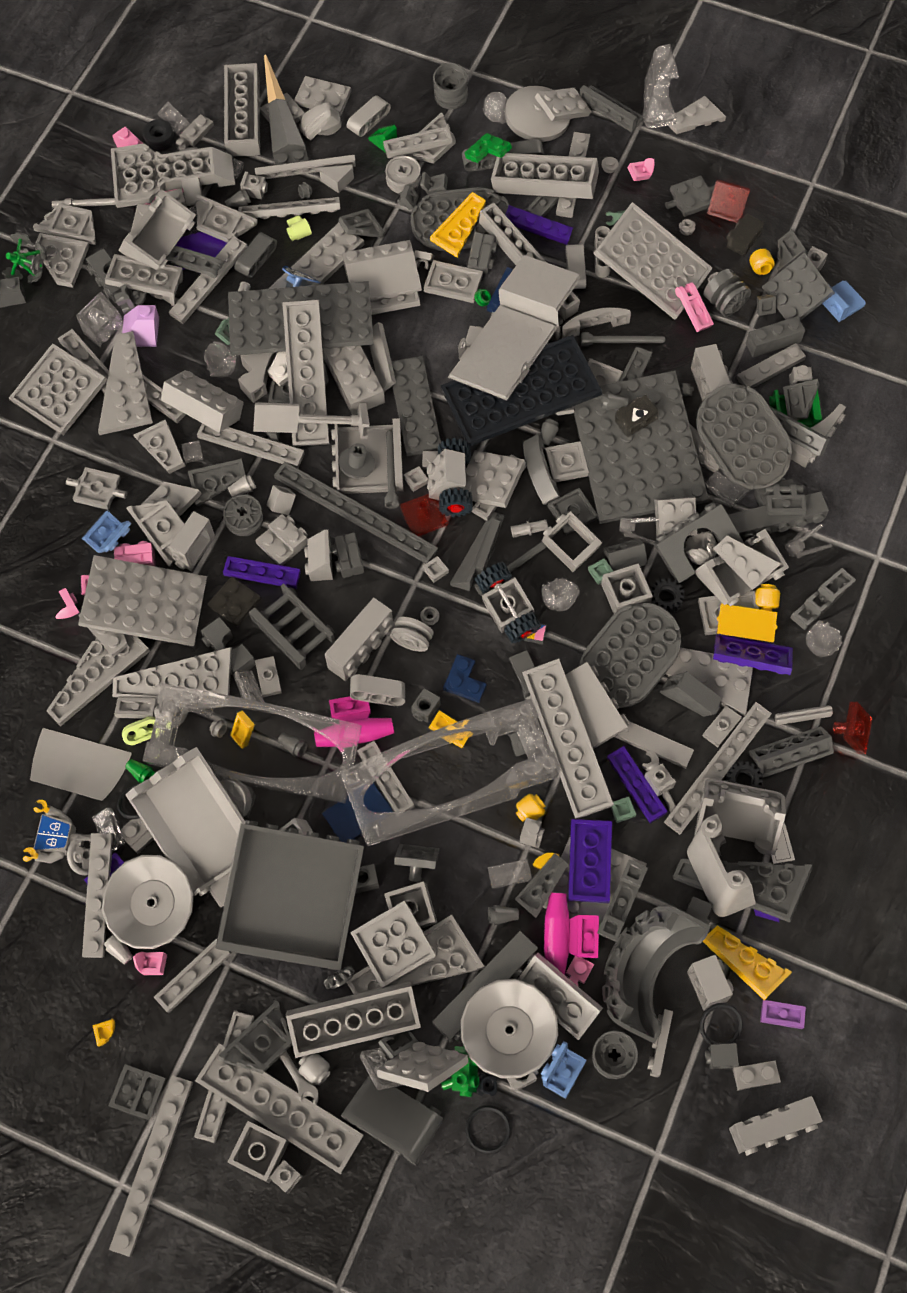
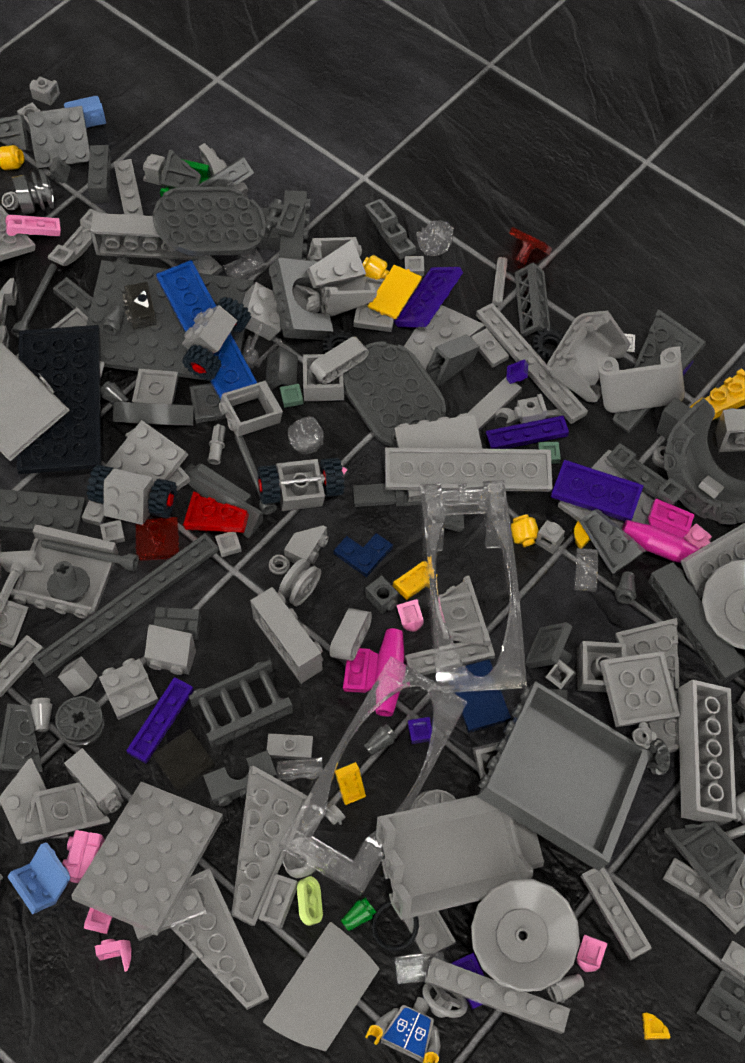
camera: 75 degrees left, 5 degrees down
(309, 769) = (420, 730): none -> dark purple plate
(350, 958) = (638, 737): none -> light grey plate
(396, 877) = (561, 674): none -> light grey leg
(413, 731) = (410, 615): none -> bright pink plate
(427, 776) = (464, 614): none -> light grey wing
(452, 630) = (306, 544): none -> light grey slope
(456, 548) = (210, 515): none -> red wing
(620, 477) = (210, 333): none -> brick
(635, 476) = (188, 298): none -> blue plate
(635, 968) = (711, 487): none -> light grey tile
(639, 593) = (339, 360): none -> light grey beam
(686, 347) = (76, 244): none -> light grey slope
(698, 756) = (517, 371): none -> dark purple plate
(788, 632) = (415, 264): none -> light grey plate
(796, 545) = (329, 229): clear plant -> none
(853, 256) = (44, 90): none -> light grey brick

